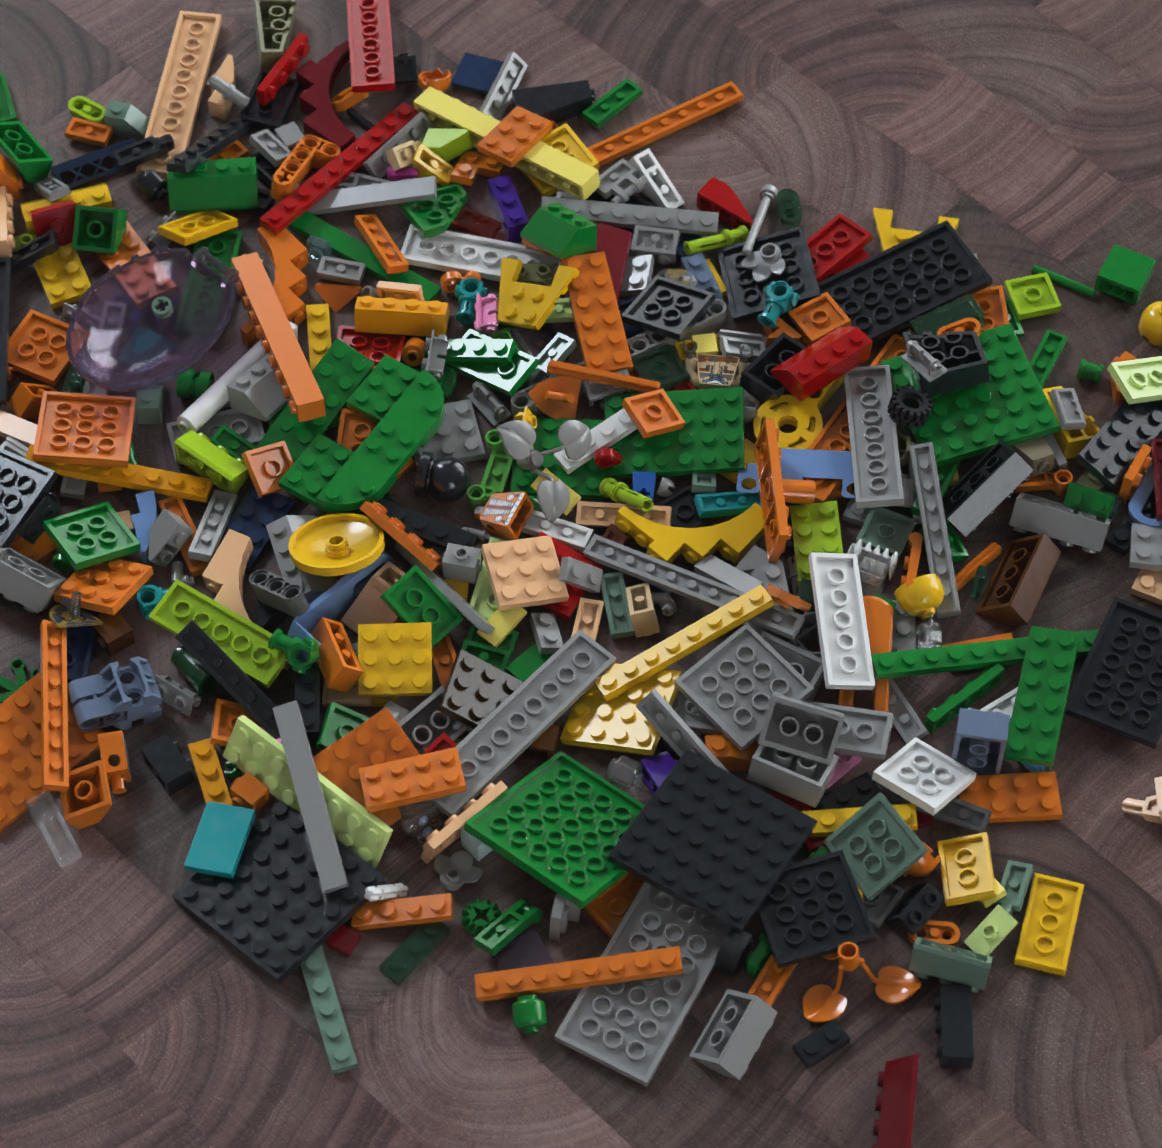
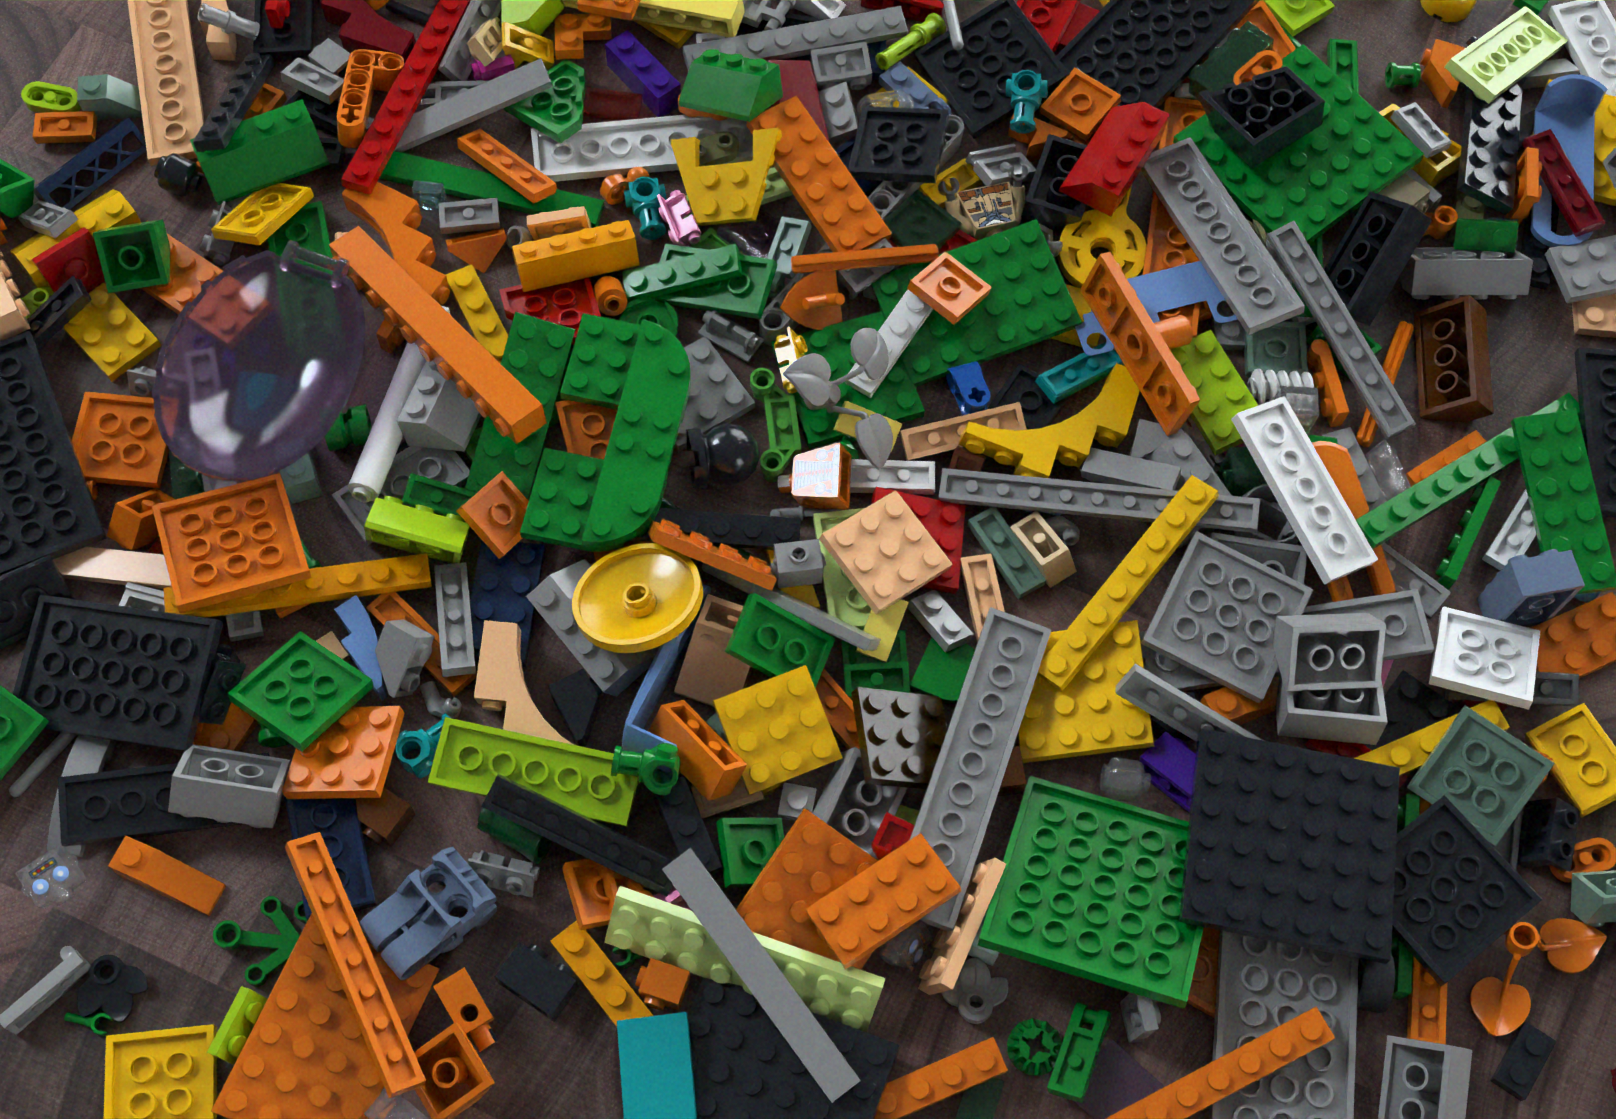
camera: 25 degrees left, 10 degrees up
(70, 614) = (321, 818): clear smoke shield -> none
(143, 151) = (148, 133): black hinge -> none
(156, 309) = (265, 329): sand green bush -> none
(279, 592) = (591, 691): dark grey beam -> none
(386, 892) = (904, 1063): white axle -> none
(437, 347) = (639, 283): light grey hinge -> none
(580, 575) = (953, 530): light grey plate -> none
(607, 458) = (913, 362): red tile -> none
(620, 492) = (949, 403): lime pin -> none
(663, 487) = (992, 375): light grey hinge -> none
(703, 483) = (1038, 356): sand green plate -> none
(706, 344) = (963, 173): light yellow tile -> none
(764, 263) = (985, 55): light grey plate -> none
(786, 599) = (1233, 485): orange plate -> none
(906, 415) = (1241, 172): black tyre -> none
(922, 596) = (1370, 423): yellow cylinder -> none
(923, 362) = (1252, 125): light grey hinge -> none
(979, 581) = (1406, 377): clear green tile -> none

